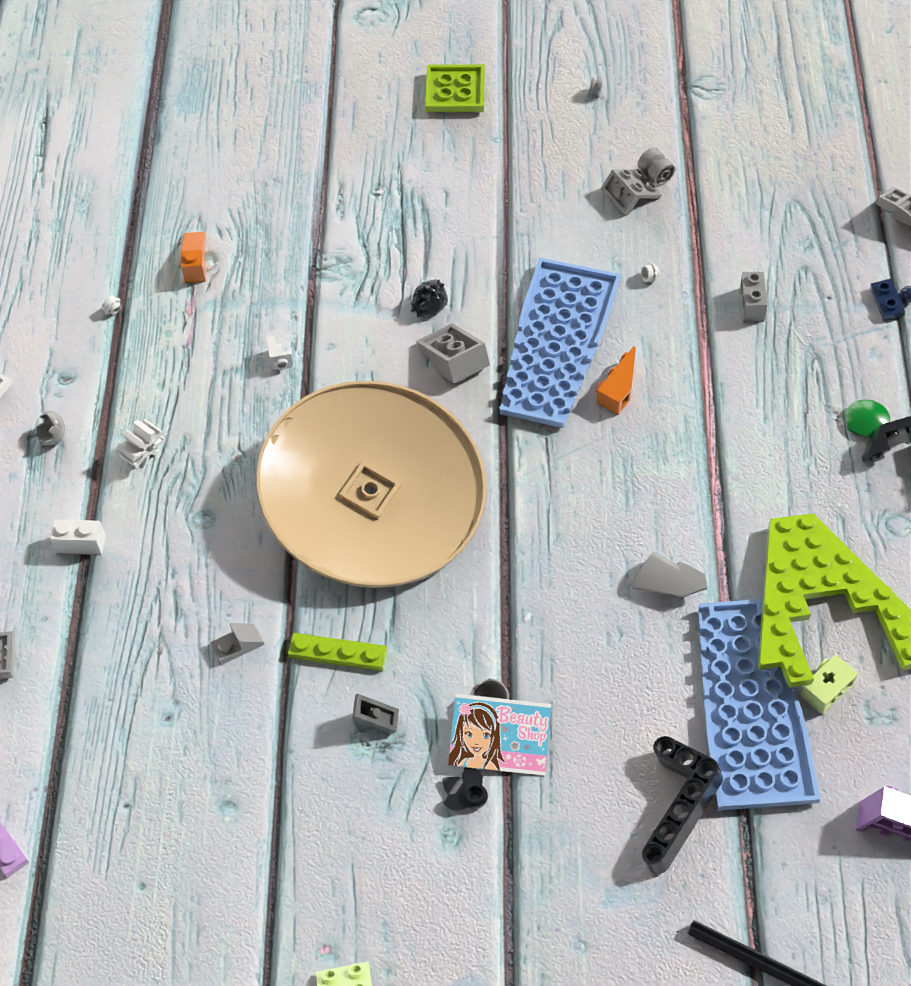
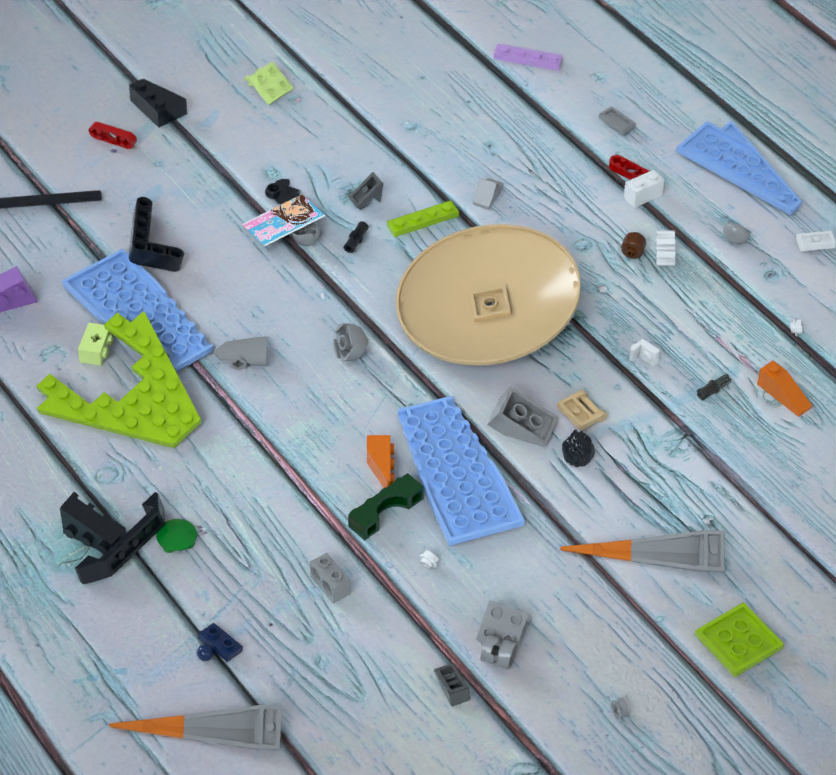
camera: 140 degrees right, 10 degrees down
(66, 585) = (620, 166): none -> red beam
(162, 474) = (633, 245): none -> reddish brown head
(249, 292) = (713, 387): none -> clear smoke axle
(396, 333) = (578, 413): none -> tan plate
(425, 161) = (687, 551): none -> light grey plate
(434, 665) = (356, 237): none -> black pin
(551, 520) = (350, 342): none -> light grey cylinder
(678, 335) = (403, 493): none -> dark green arch
(713, 157) = (452, 685): none -> dark grey slope

